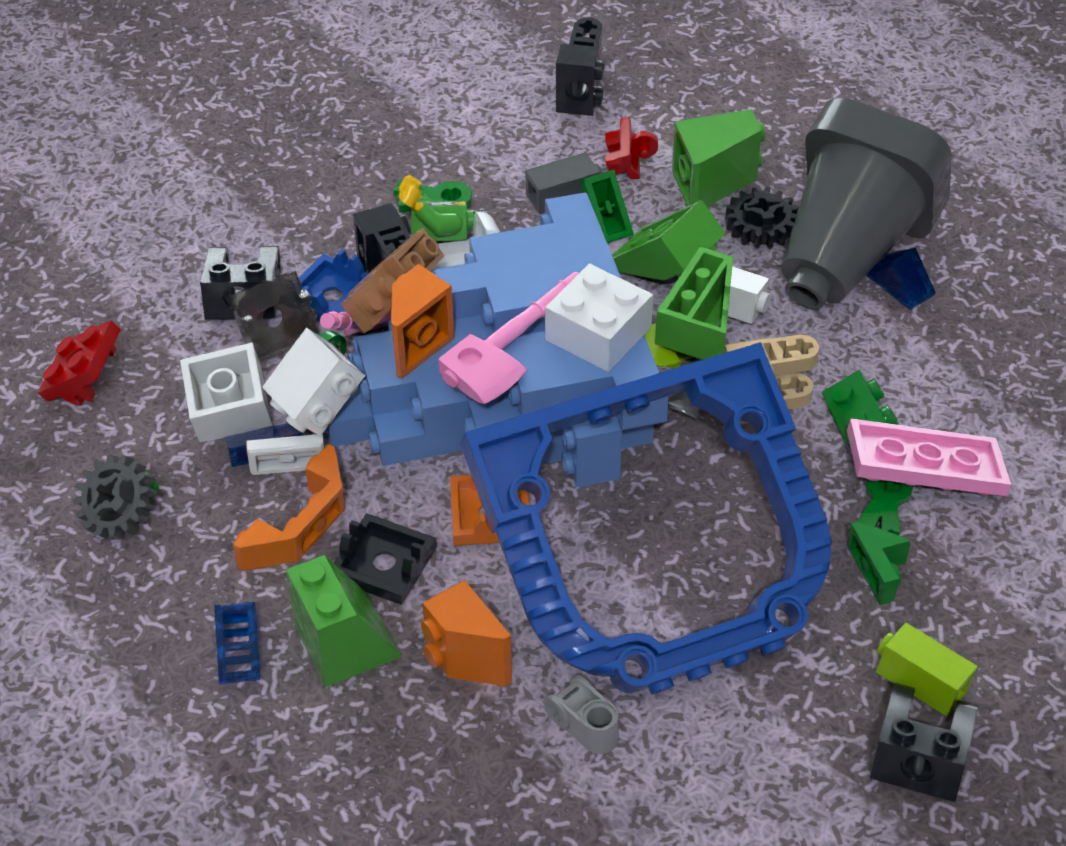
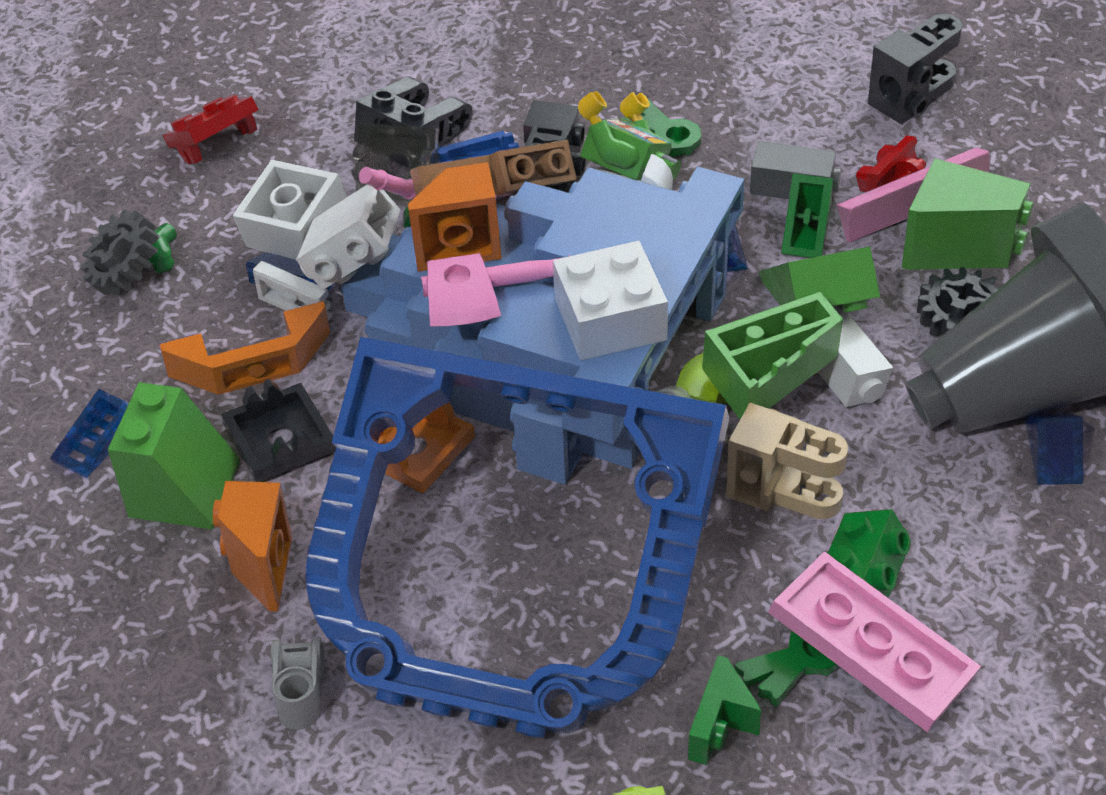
camera: 40 degrees right, 0 degrees up
(655, 161) = (892, 201): none -> bright pink slope

